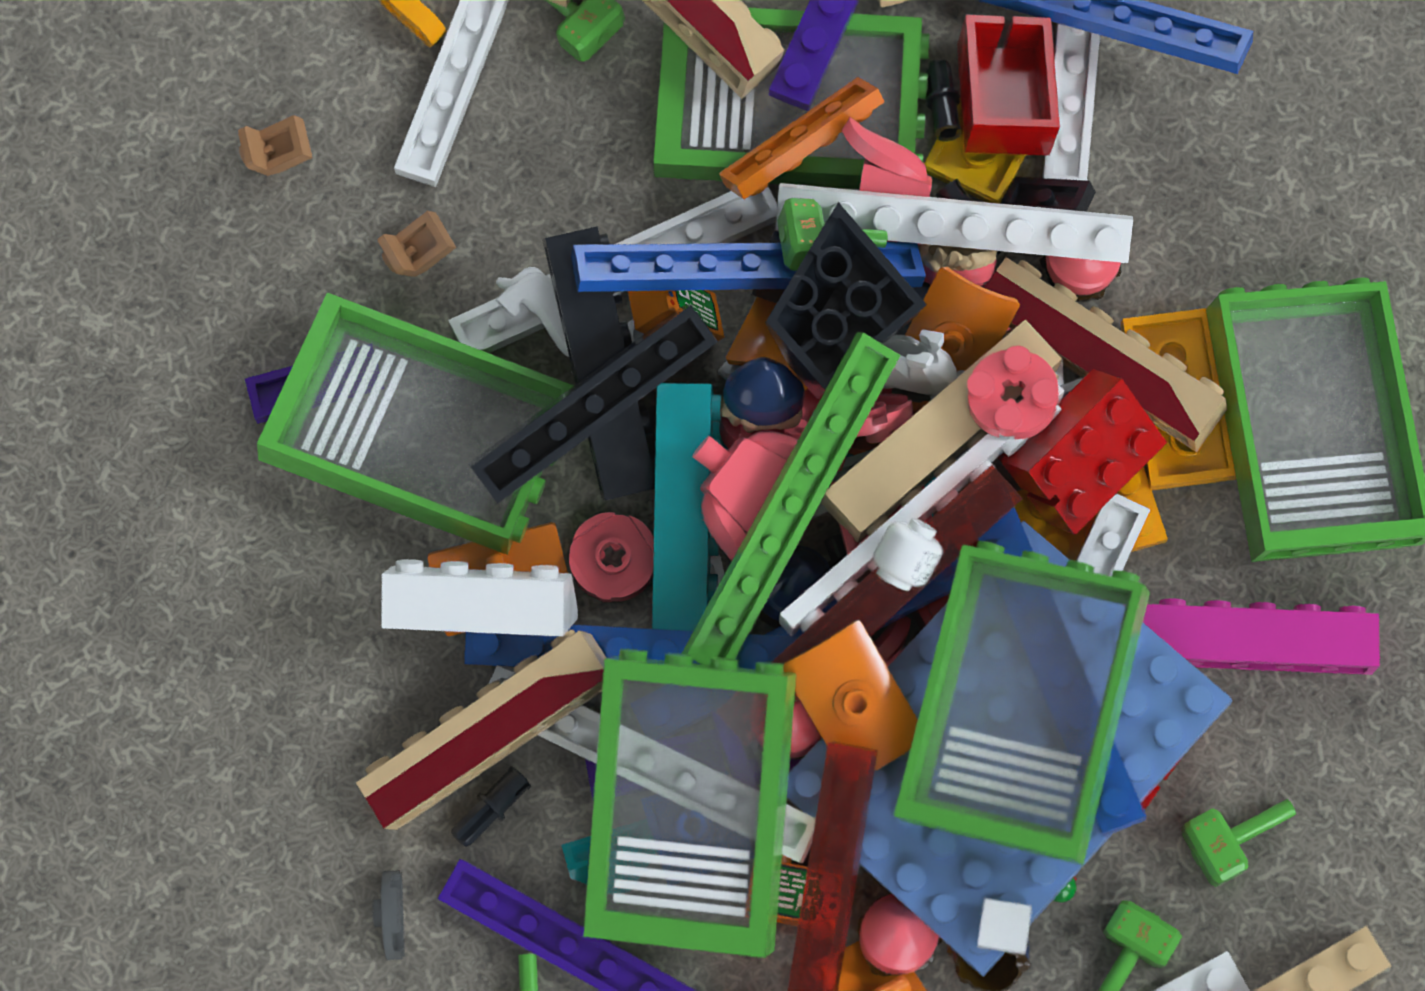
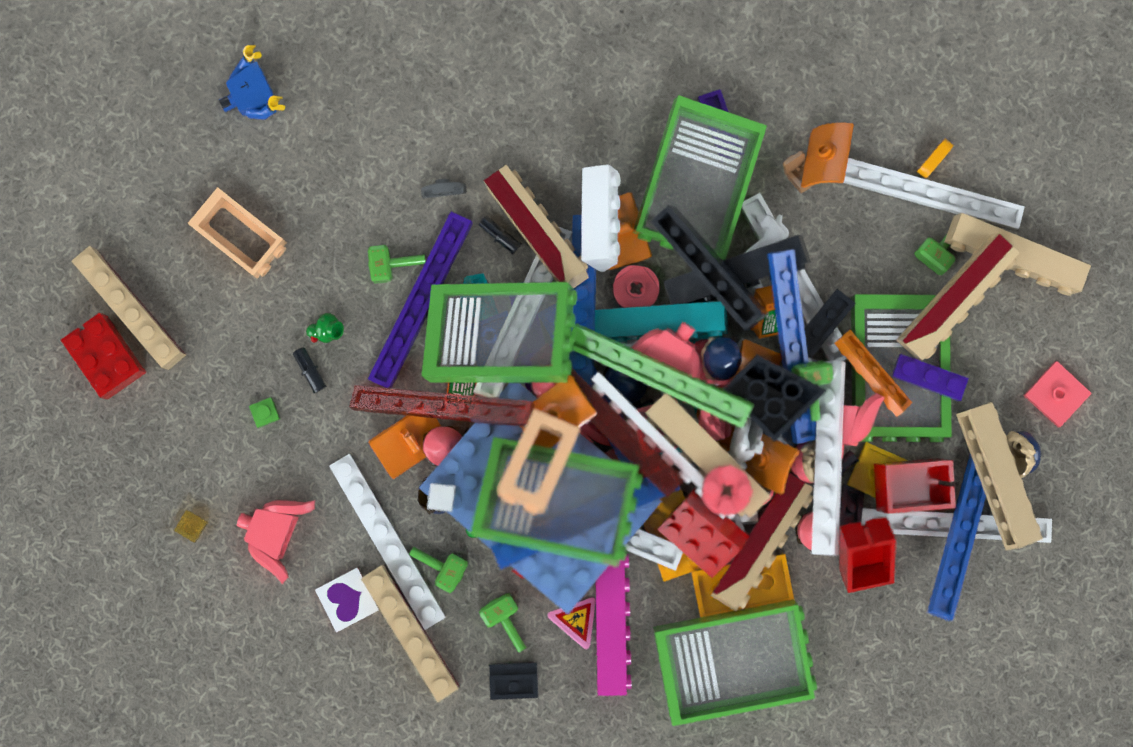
camera: 85 degrees right, 10 degrees up
(275, 147) = (851, 92): medium nougat bracket -> none
(389, 192) = (827, 154): none -> orange shield
(694, 210) = (826, 320): none -> black plate
(907, 554) = (631, 436): white head -> none
(943, 101) = (904, 451): black axle -> none
(995, 782) = (539, 501): none -> light nougat piece
(1130, 169) = (867, 554): none -> red piece
(1252, 700) = (578, 622): none -> piece
(1349, 826) = (513, 680): none -> black plate

